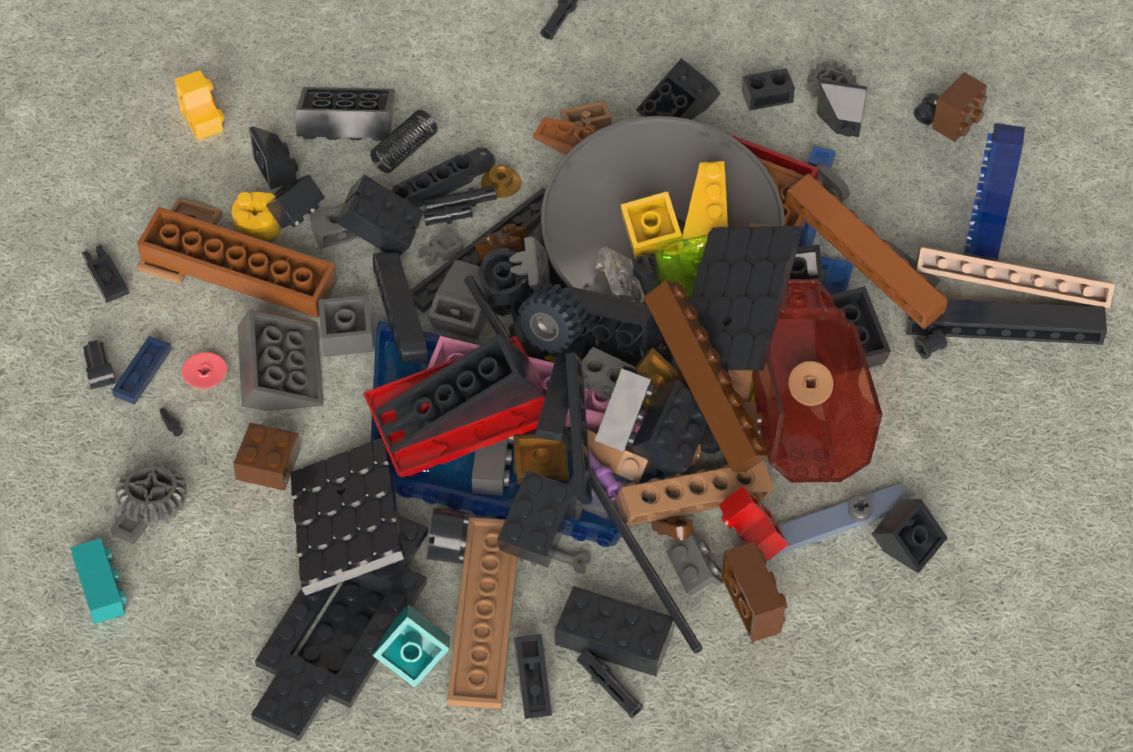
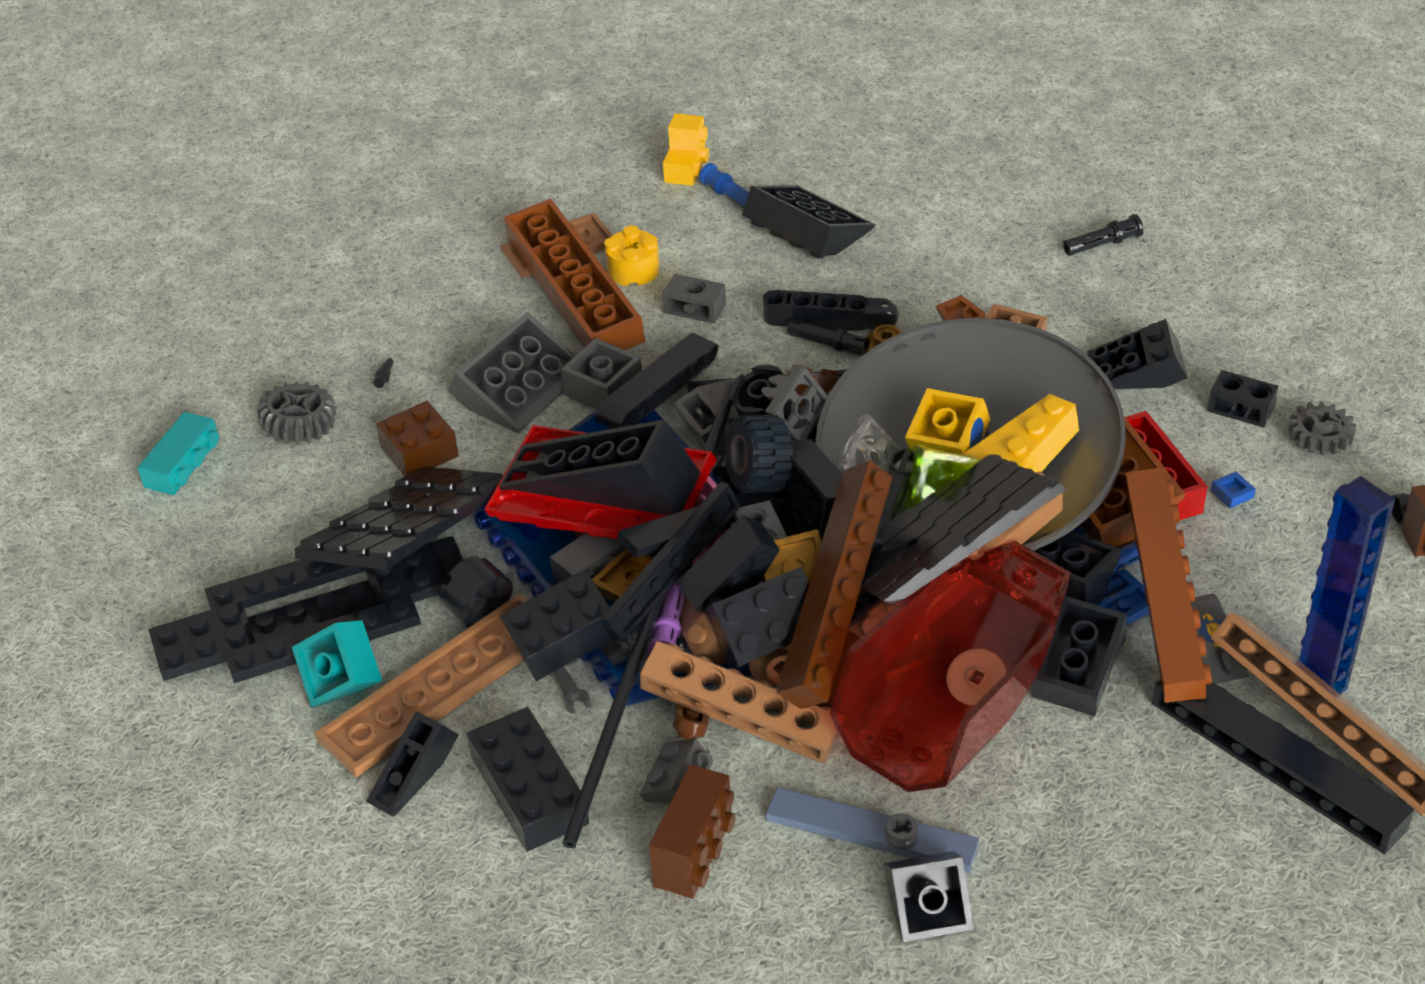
camera: 45 degrees right, 10 degrees down
(99, 369) = (378, 302): black piece -> none
(105, 275) = (468, 237): black hinge -> none
(128, 529) = (251, 430): dark grey plate -> none
(141, 370) = (408, 320): dark blue plate -> none
(201, 363) = (452, 347): coral piece -> none
(252, 117) = (722, 183): none -> blue pin
(272, 158) = (698, 217): black slope -> none
(294, 201) = (666, 254): black brick -> none
(380, 216) = (727, 303): black piece -> none
(421, 129) = (846, 266): black piece -> none
(441, 246) = (746, 361): dark grey plate -> none
(448, 214) = (802, 342): black pin -> none
(602, 675) = (472, 812): black pin -> none
(753, 522) = (767, 766): red brick -> none
(833, 182) = (1218, 520): dark grey plate -> none
(842, 106) = (1306, 451): slope -> none
(930, 343) = (1164, 725): black bush -> none

